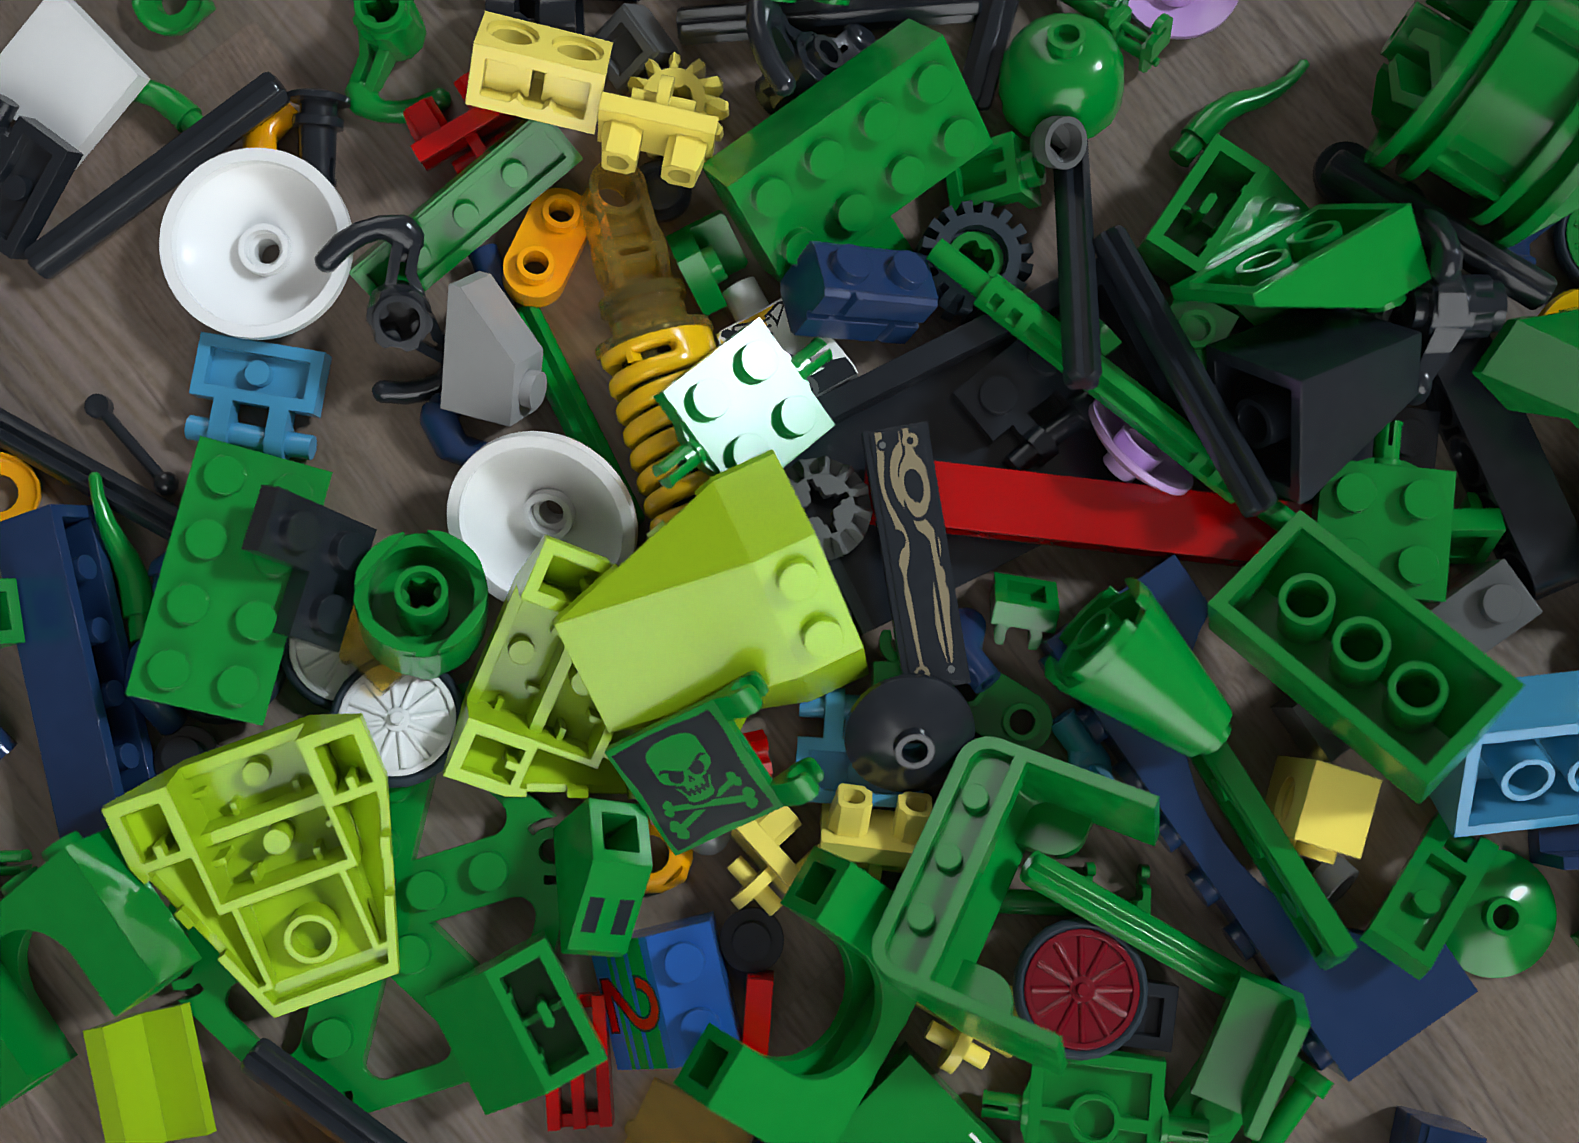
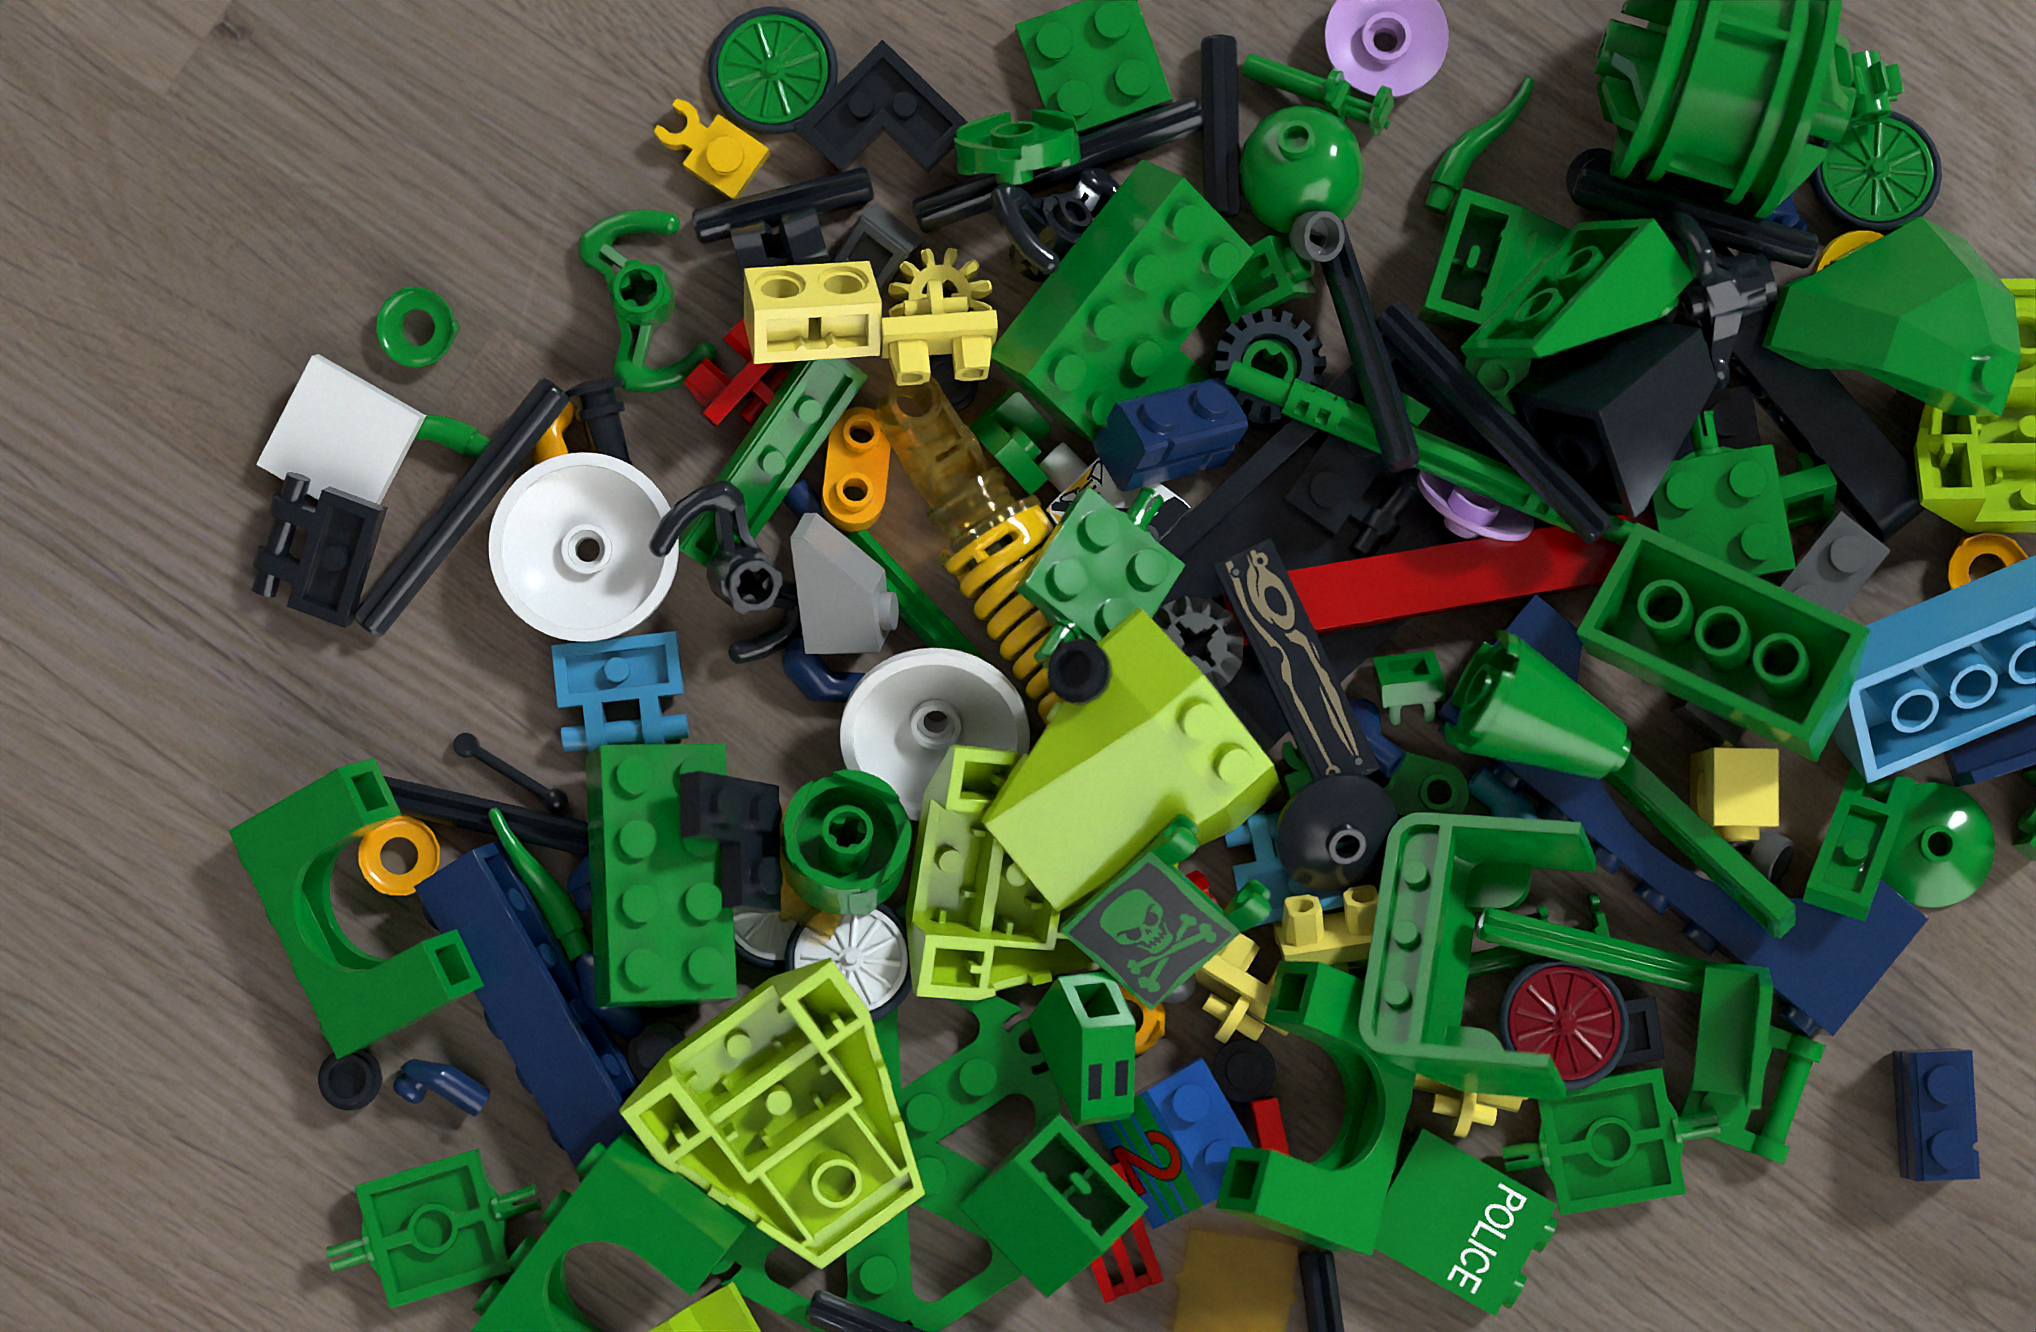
camera: 20 degrees left, 0 degrees up
(690, 495) = (1079, 671): none -> black plate

